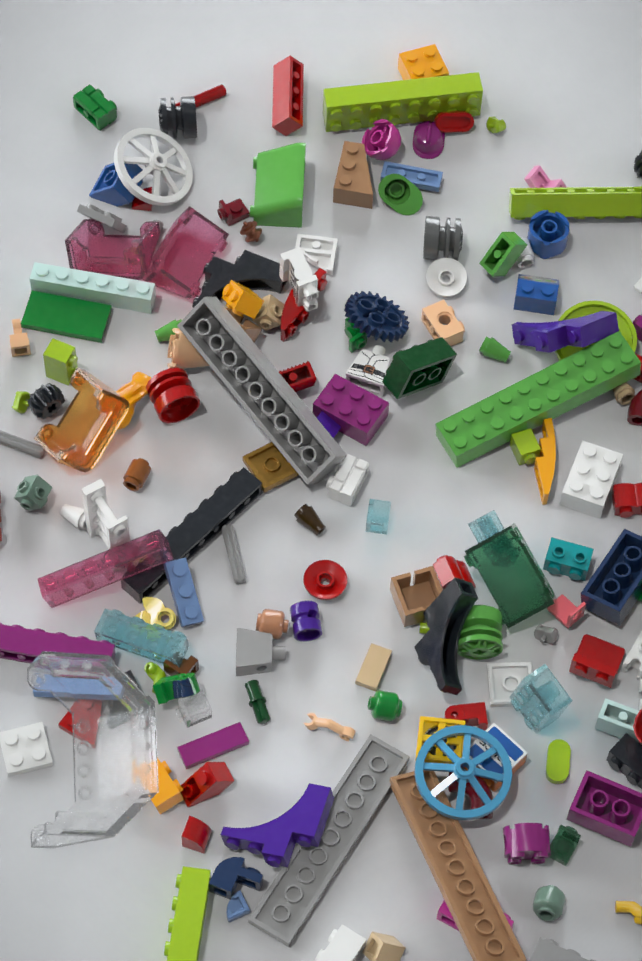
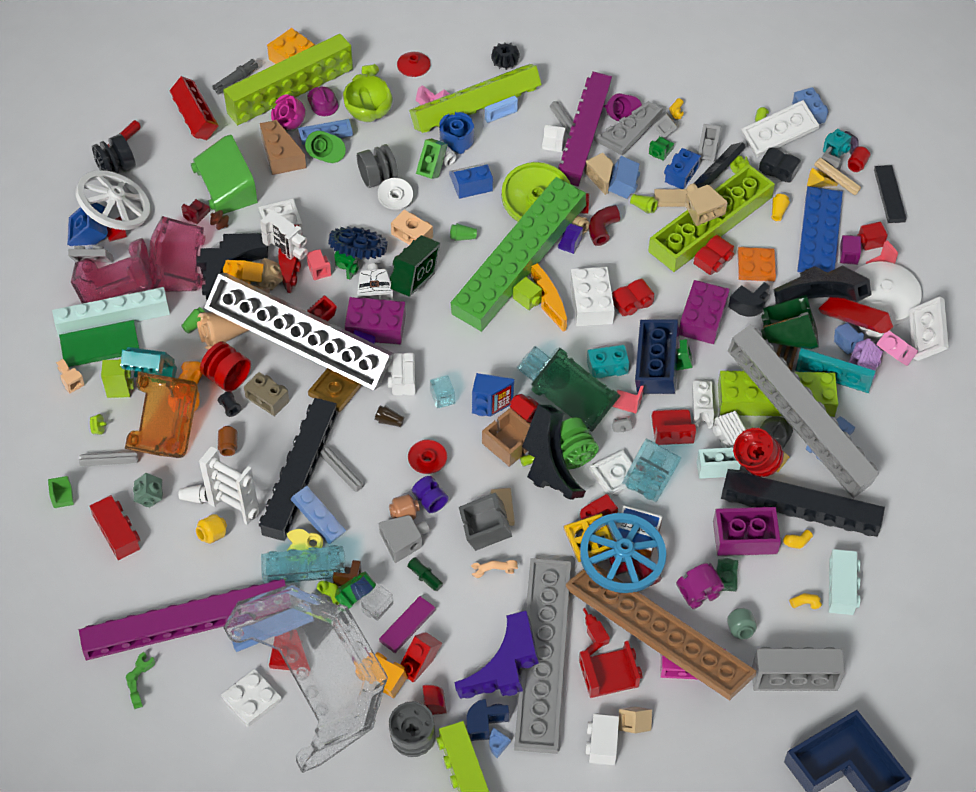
camera: 25 degrees left, 5 degrees down
(46, 401) = (120, 414): black gear -> none
(71, 555) = (211, 528): none -> yellow head
(95, 107) = (37, 175): green brick -> none
(95, 362) = (148, 362): none -> teal plate
(105, 568) = (244, 522): clear pink brick -> none
(151, 843) = (408, 718): none -> dark grey wheel
(158, 433) = (228, 402): none -> black bush
(201, 441) = (266, 393): none -> dark tan brick
(325, 323) = (318, 265): none -> coral brick
(347, 674) = (487, 520): none -> dark grey piece
(358, 73) = (240, 72): none -> dark grey pin
(385, 705) = (529, 531): green head -> none
(386, 888) = (610, 671): none -> red panel
(396, 842) = (596, 633): none -> red piece
(423, 542) = (491, 394): none -> blue slope
(454, 121) = (337, 79): red tile -> none
(472, 157) = (367, 98): none -> lime piece
(545, 140) = (413, 64): none -> red dish
(558, 761) = (685, 515): lime tile -> none
(572, 332) = (511, 197): dark purple arch -> none
(607, 405) = (571, 238): none -> dark purple panel
(611, 225) = (501, 109): none -> light blue tile

